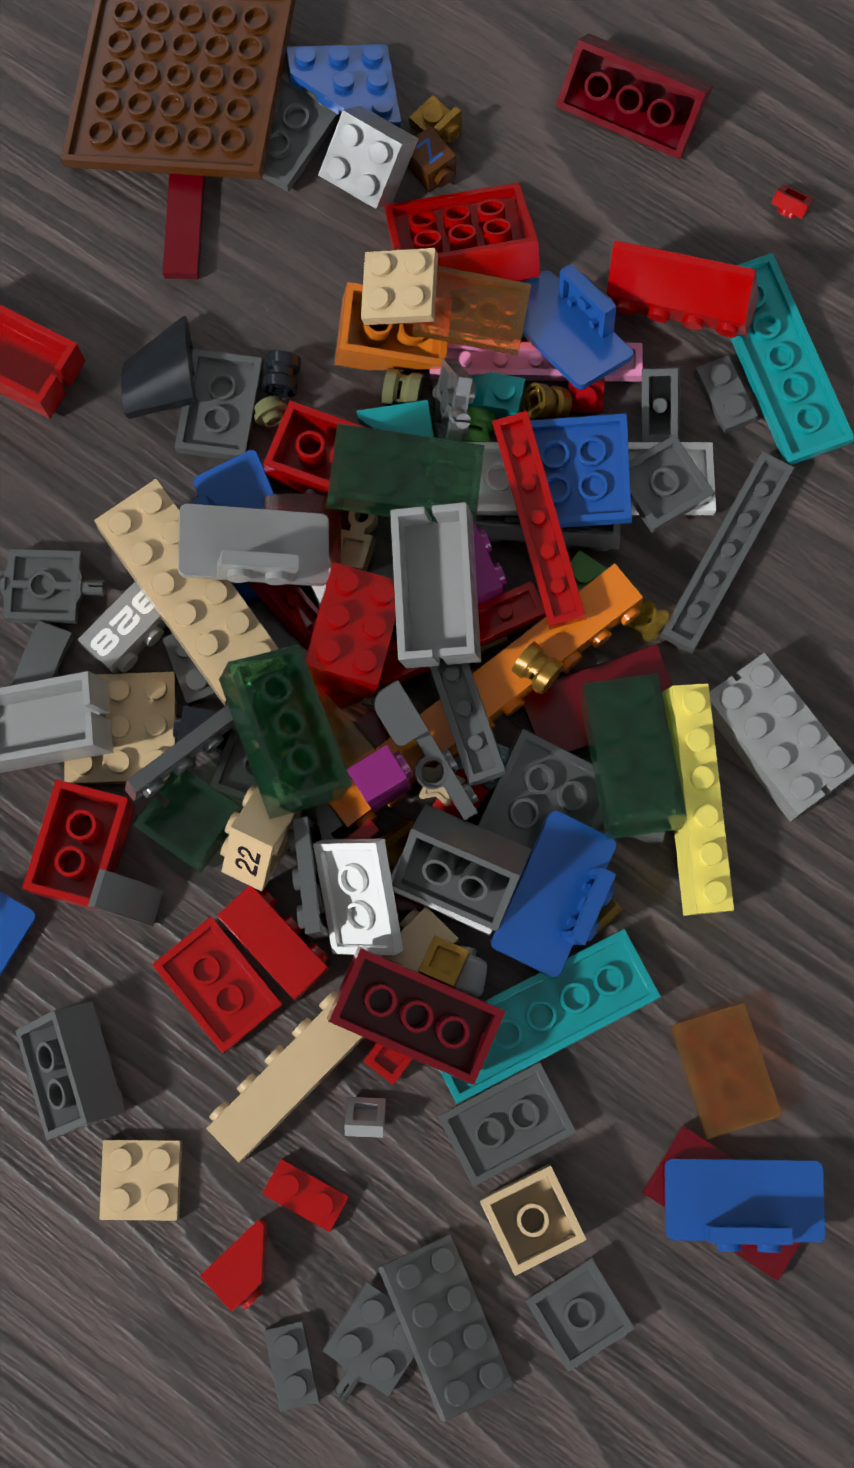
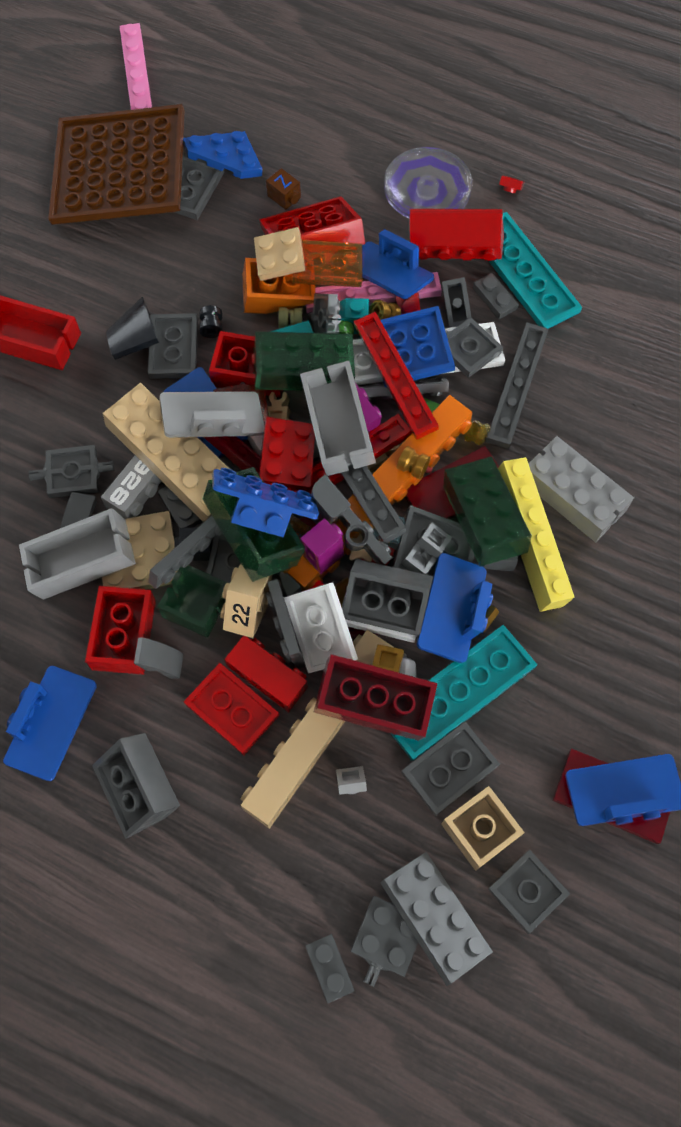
camera: 15 degrees left, 10 degrees down
(141, 1180) = (198, 854): tan plate -> none
(183, 226) = (133, 247): dark red tile -> none
(240, 1268) = (281, 903): red slope -> none
(269, 411) = (206, 344): olive plate -> none
(301, 710) = (261, 504): none -> blue bracket
(305, 1195) = (318, 843): red plate -> none
(367, 156) = (245, 189): brick -> none
(387, 1062) = (360, 738): red plate -> none
(435, 114) = (291, 167): pearl gold bracket -> none
(532, 803) = (426, 549): none -> dark grey slope
(633, 95) = (389, 135): dark red slope -> none
(657, 185) = (427, 181): none -> clear dish
(725, 1071) = (591, 706): clear orange plate -> none

